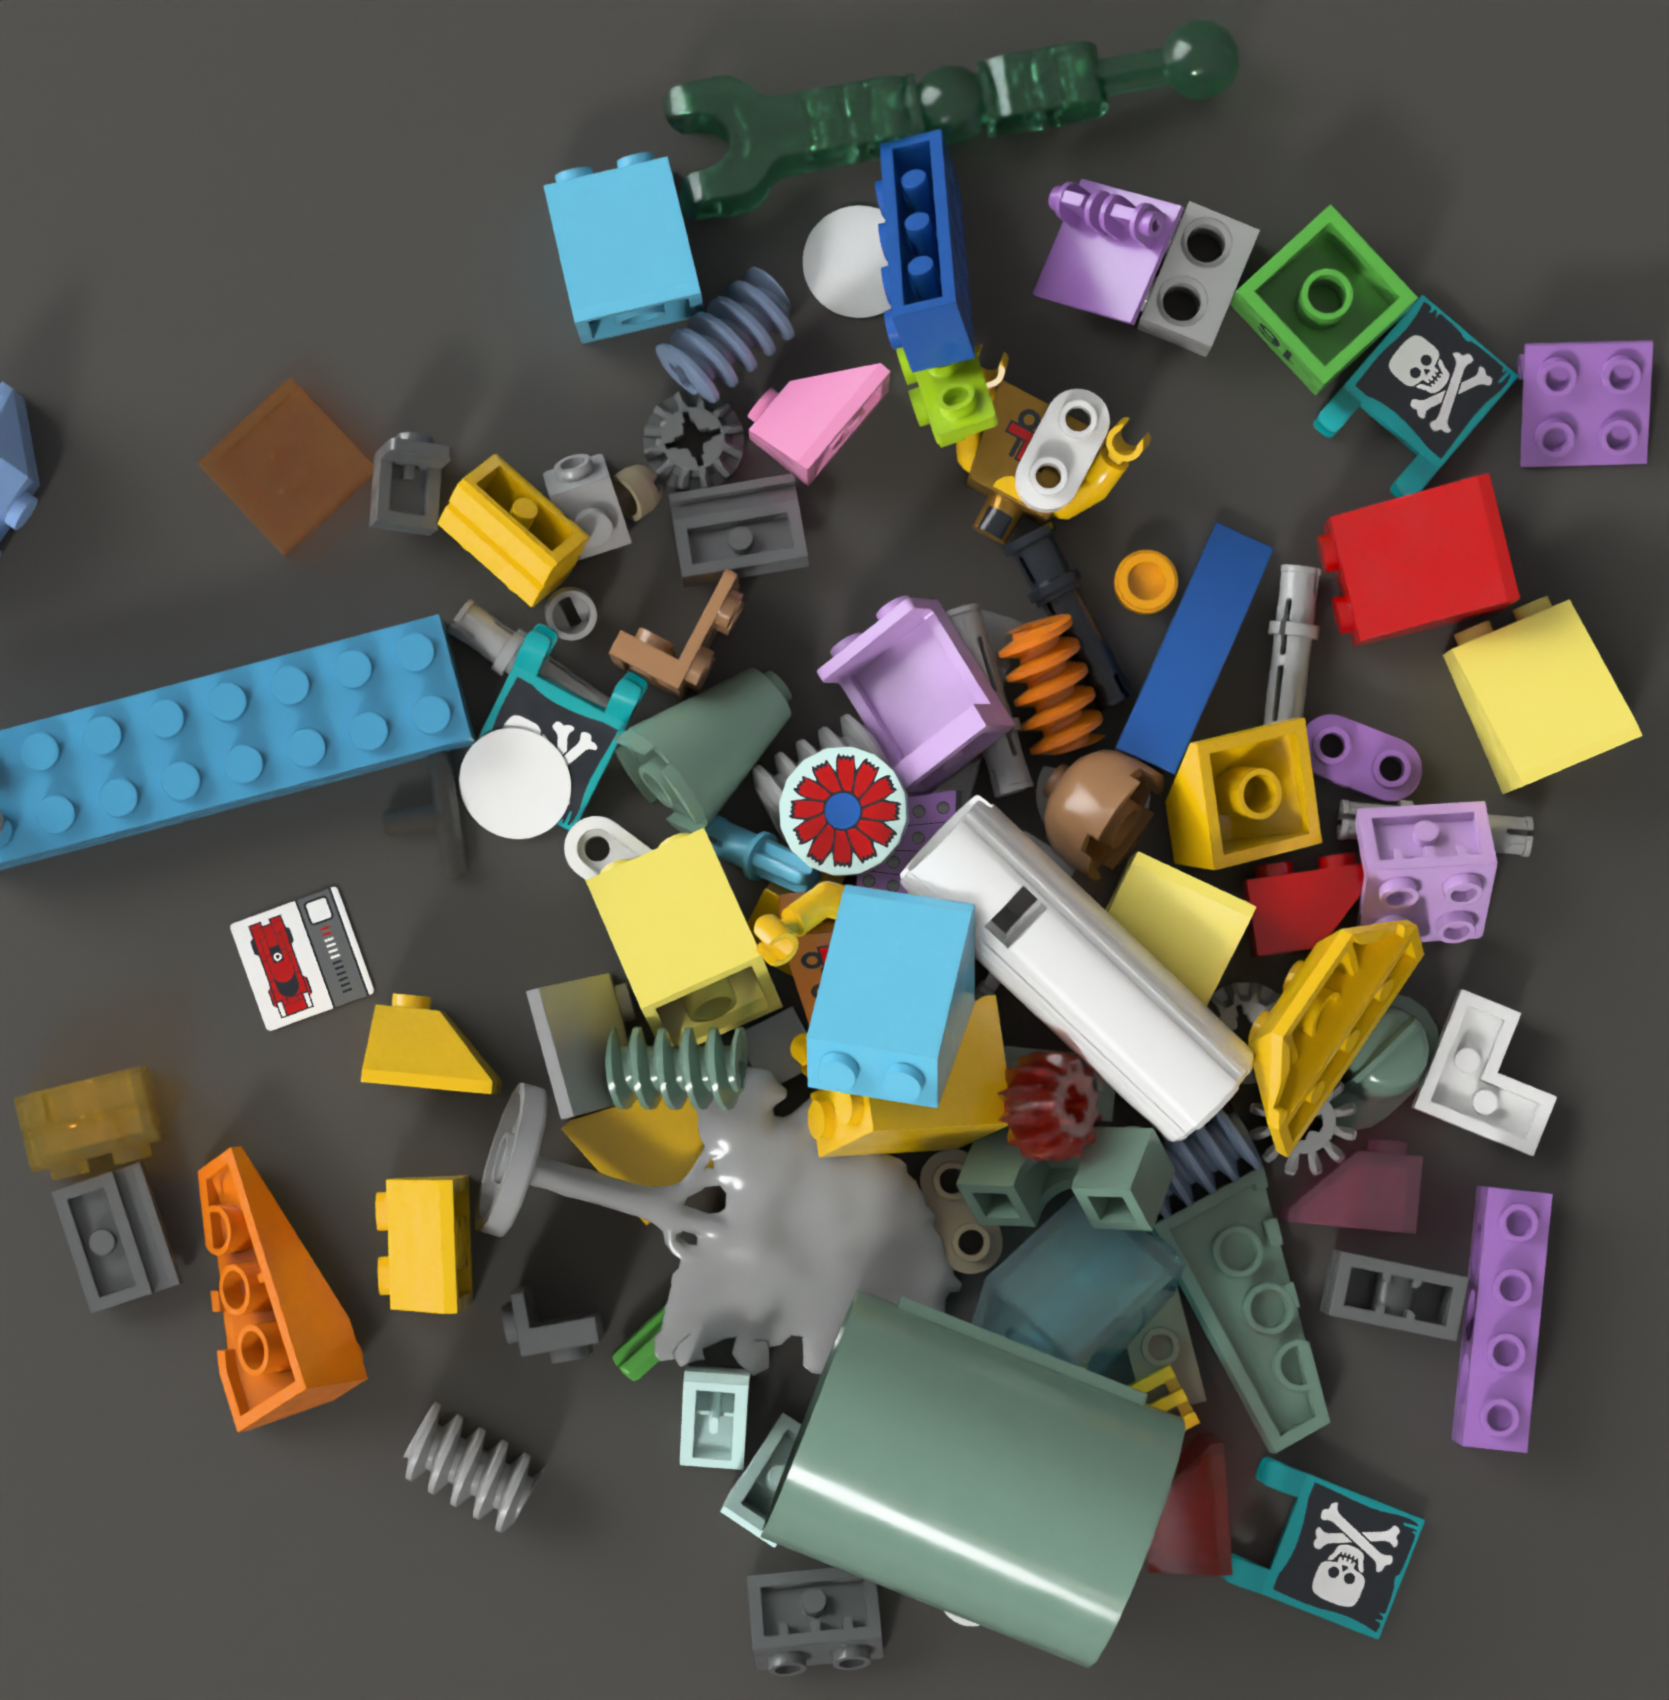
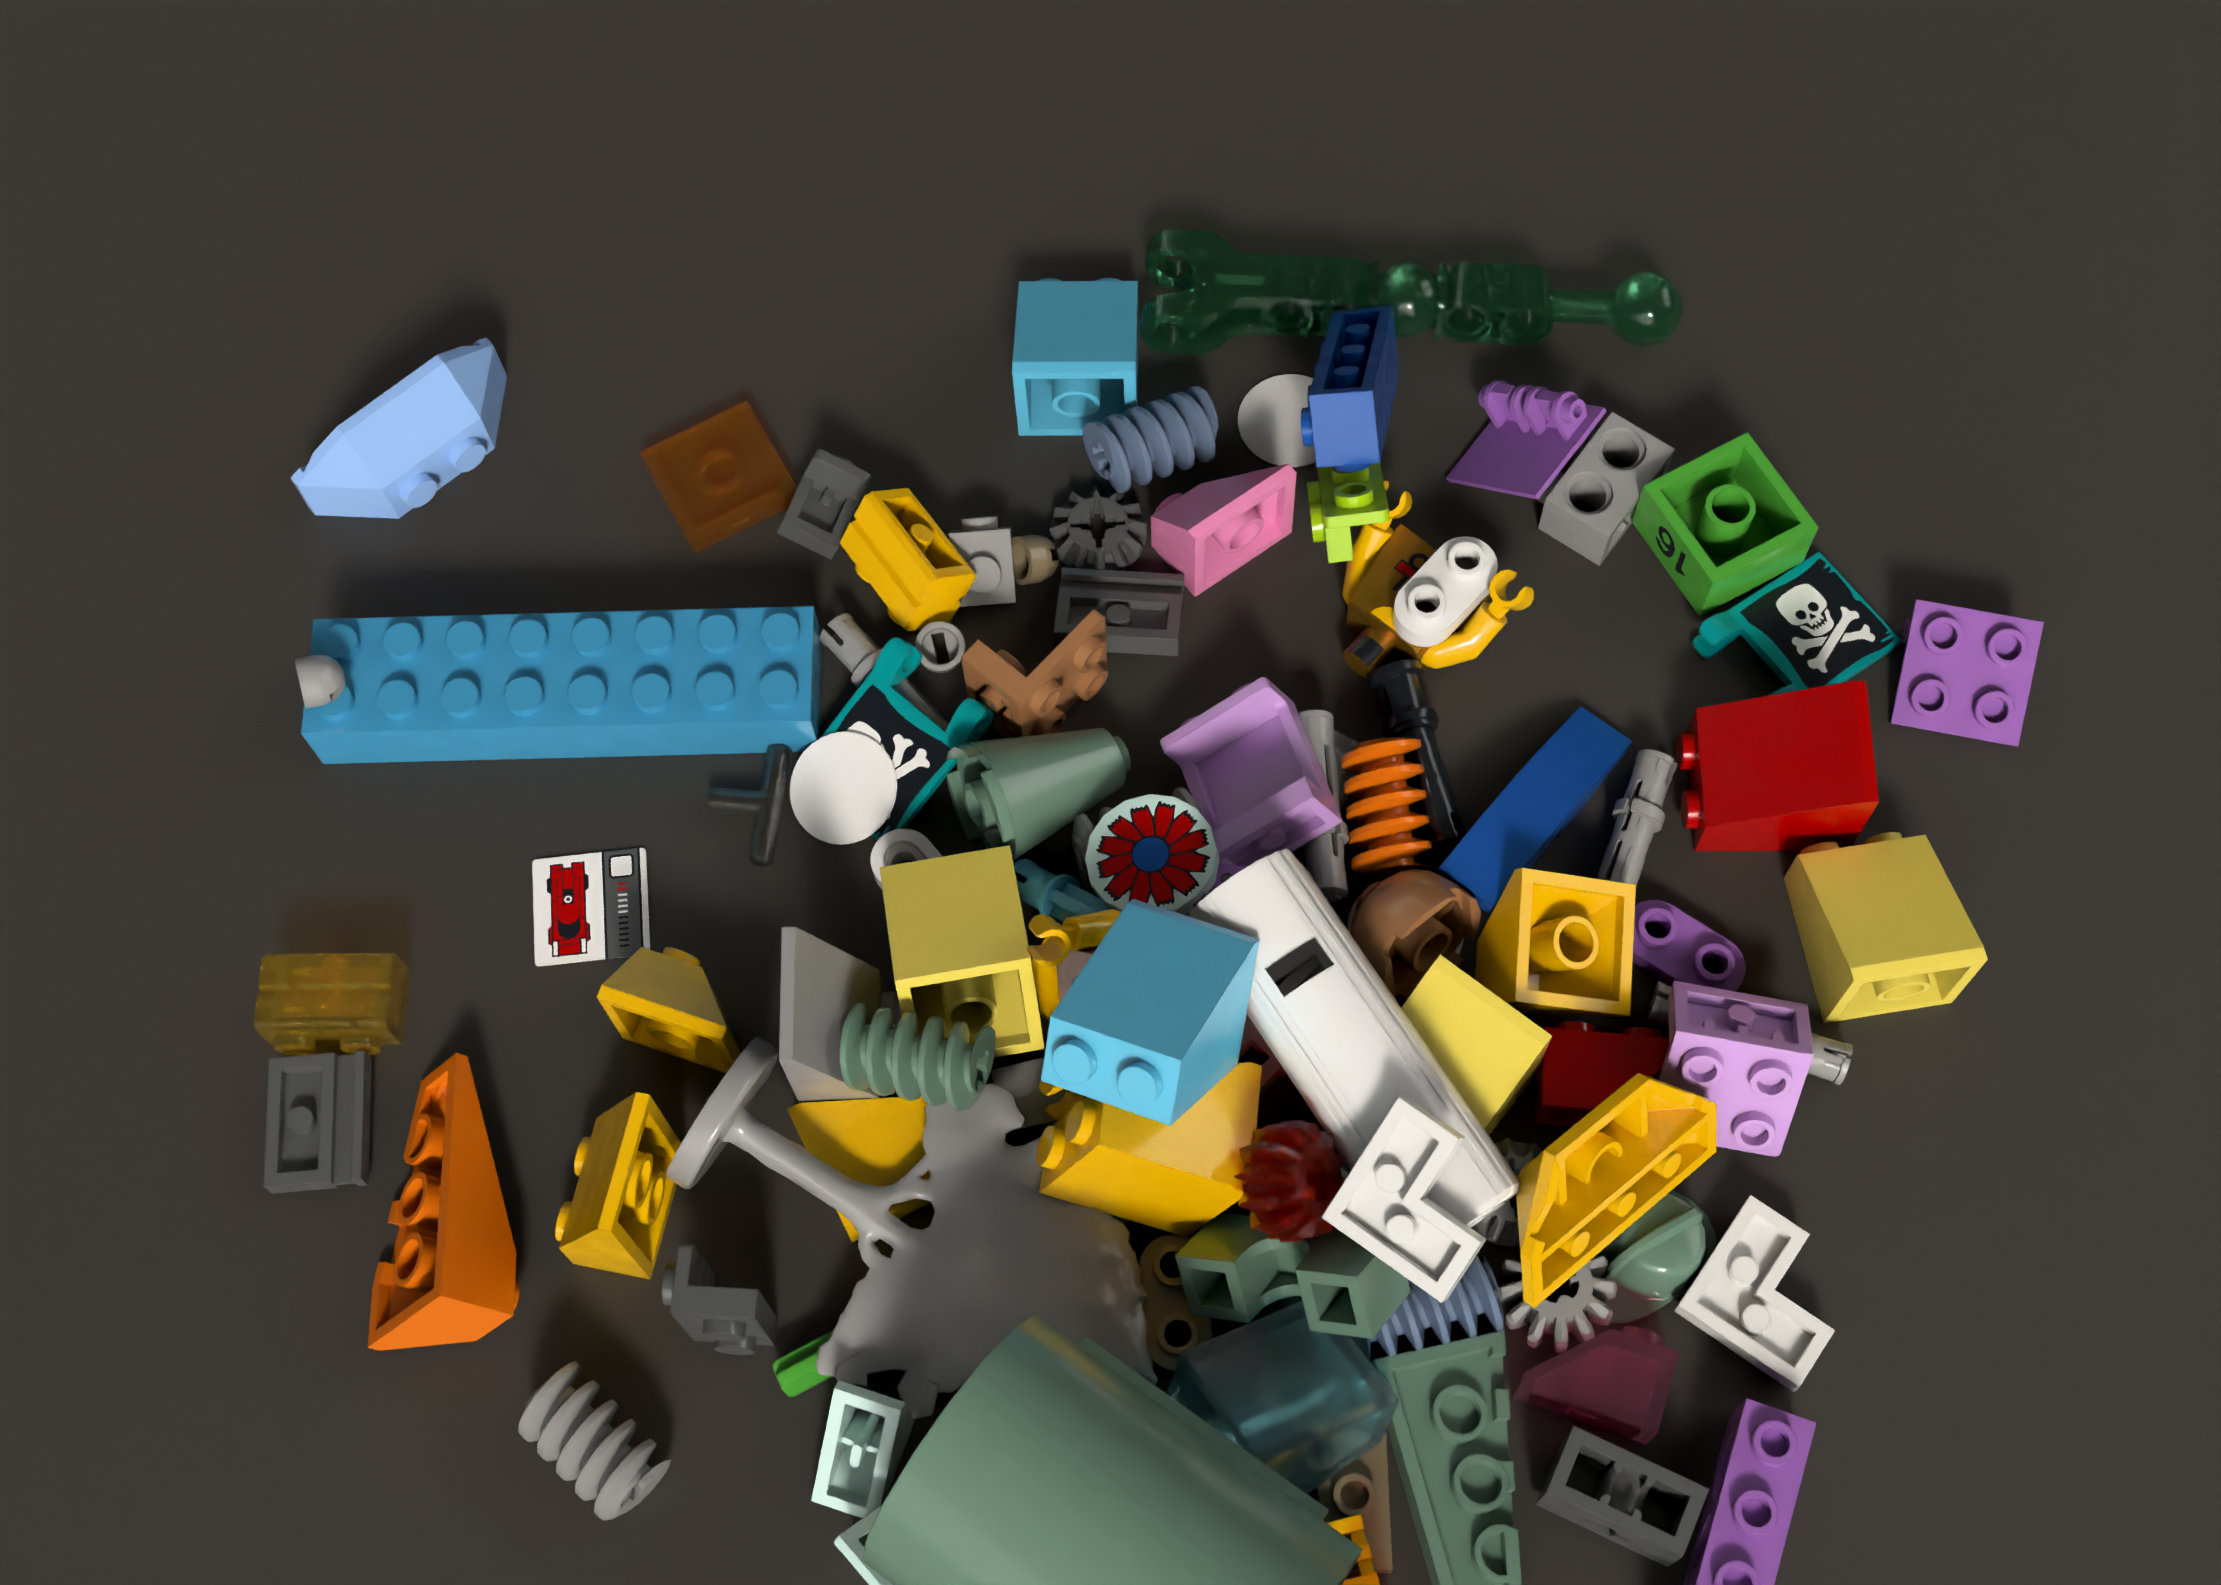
camera: 20 degrees right, 20 degrees down
(1145, 582) = (1500, 744): light orange tile -> none
(1148, 1126) = (1388, 1207): none -> white plate

